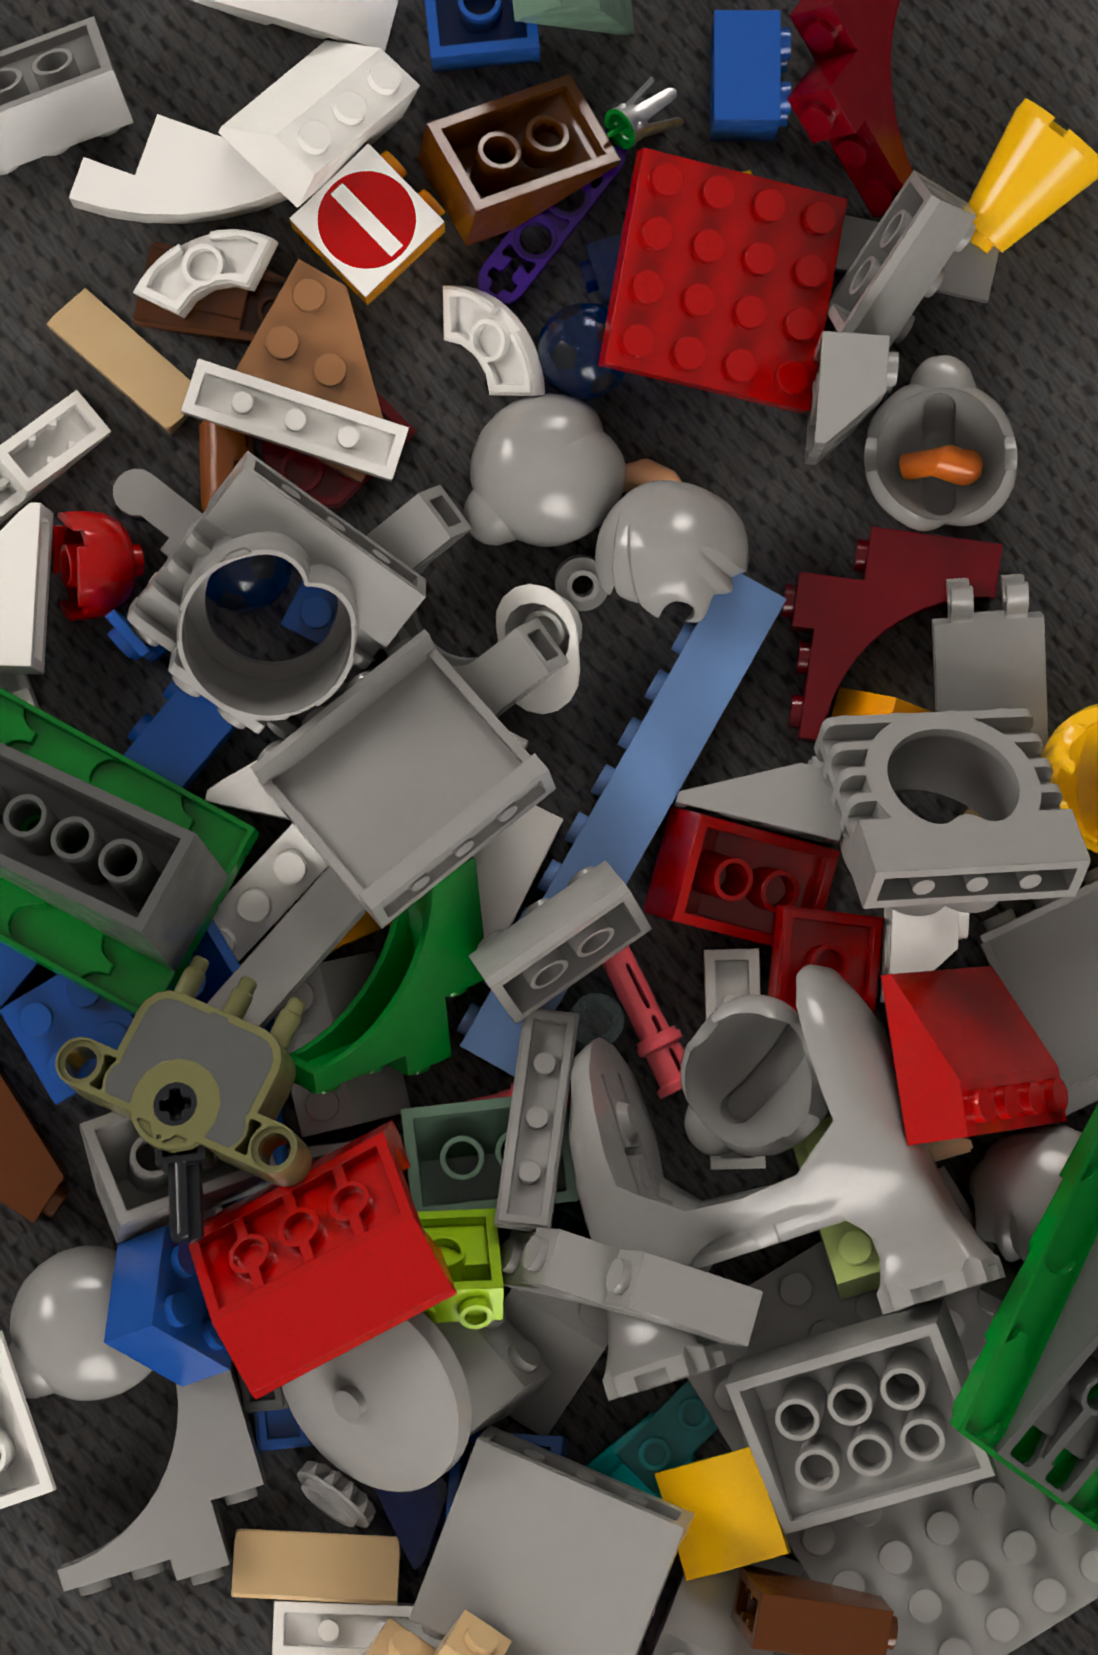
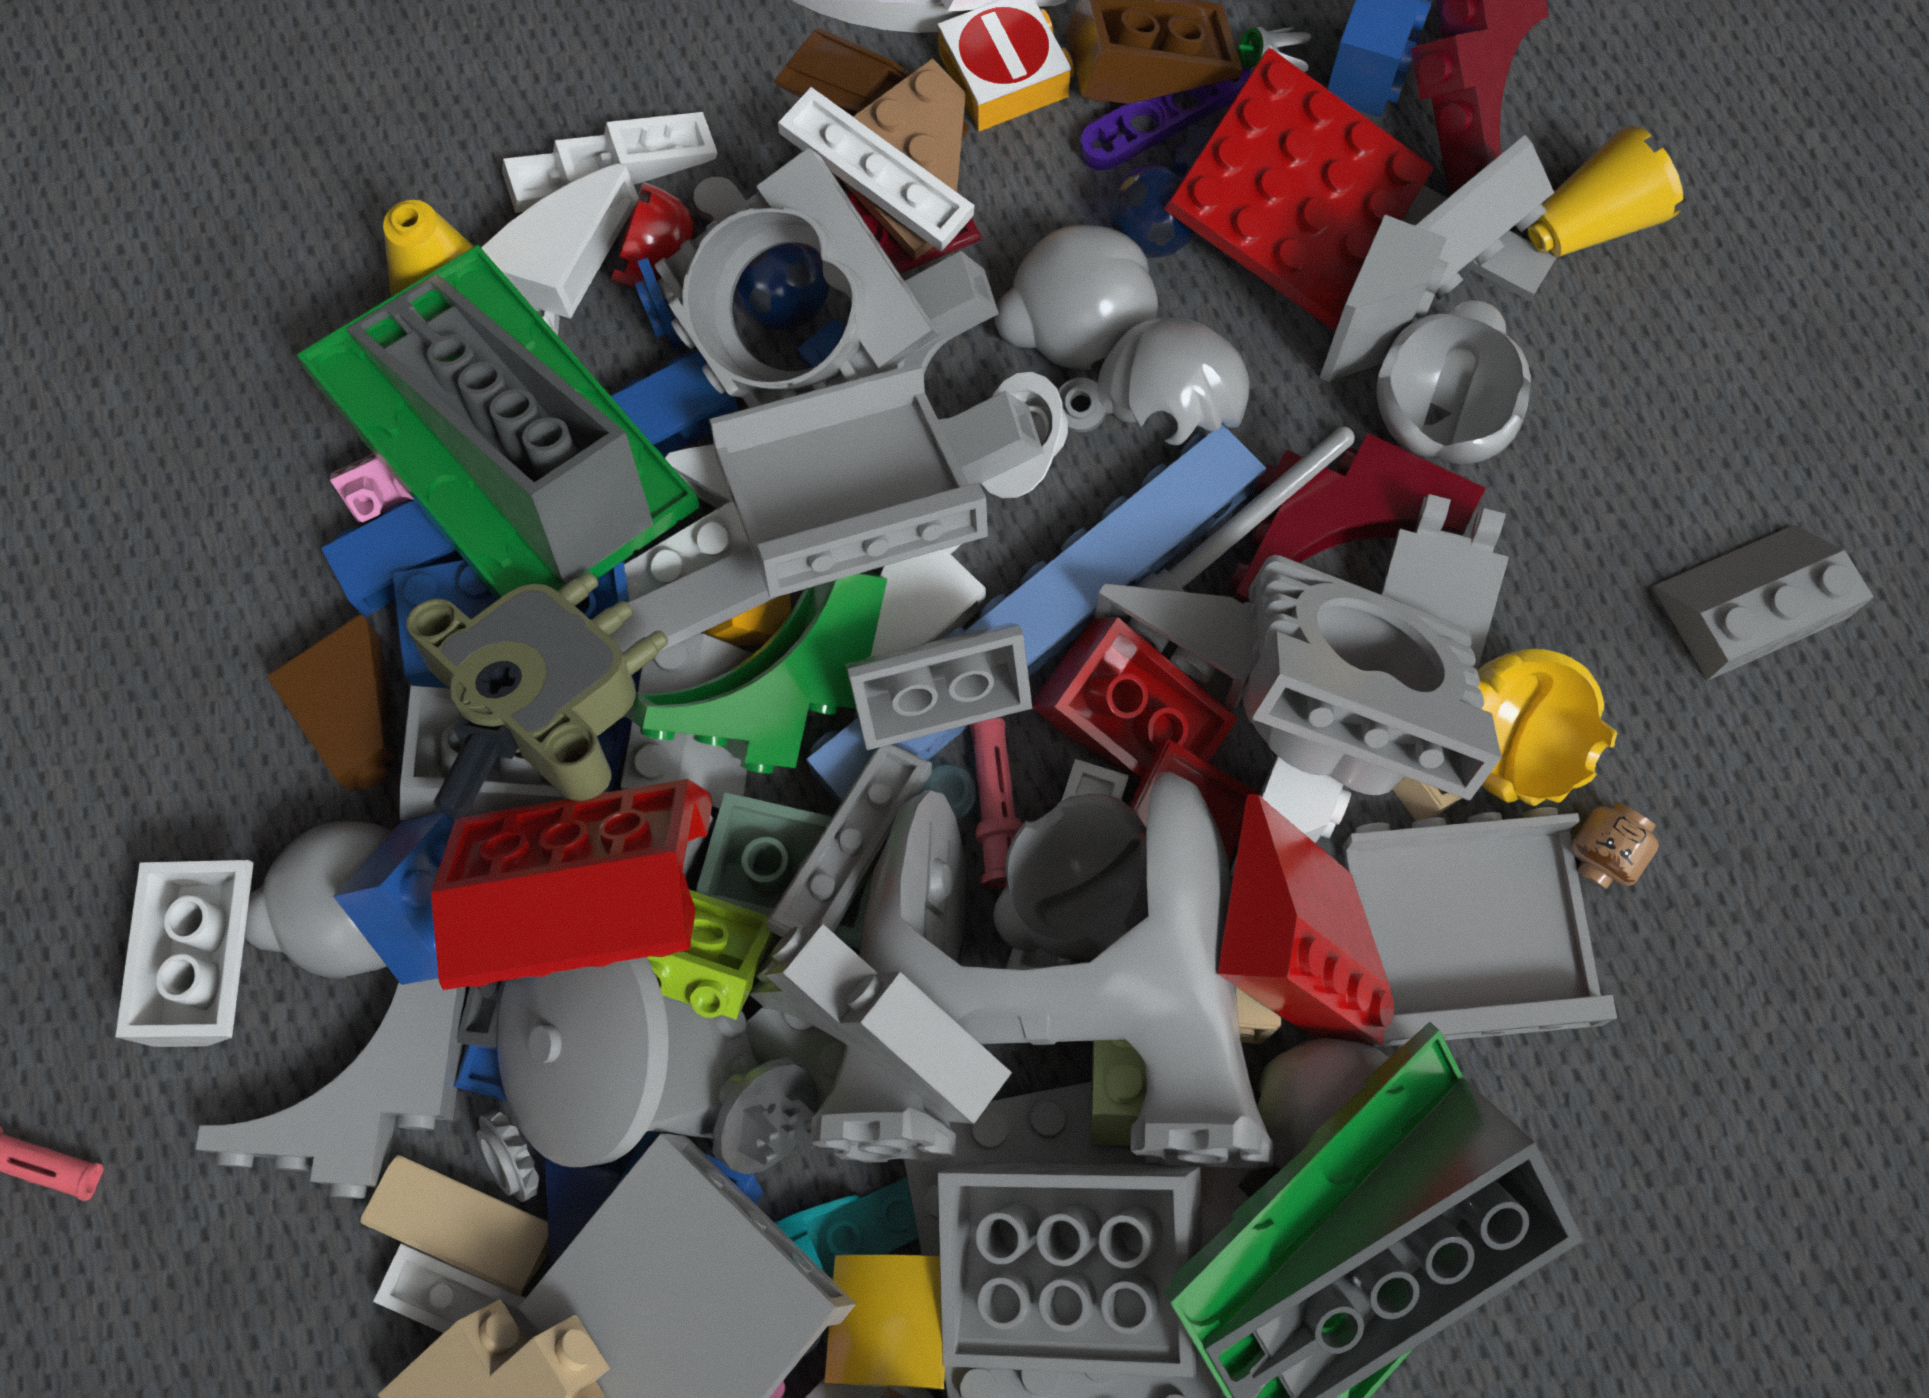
camera: 25 degrees right, 15 degrees down
(123, 358) = (749, 101): tan slope -> none
(206, 265) = (866, 49): white tile -> none
(495, 339) = (1079, 177): white tile -> none
(557, 1386) = (764, 1115): none -> flat silver plate
(729, 748) = (1251, 514): none -> light grey piece
(945, 463) = (1454, 401): orange arm -> none

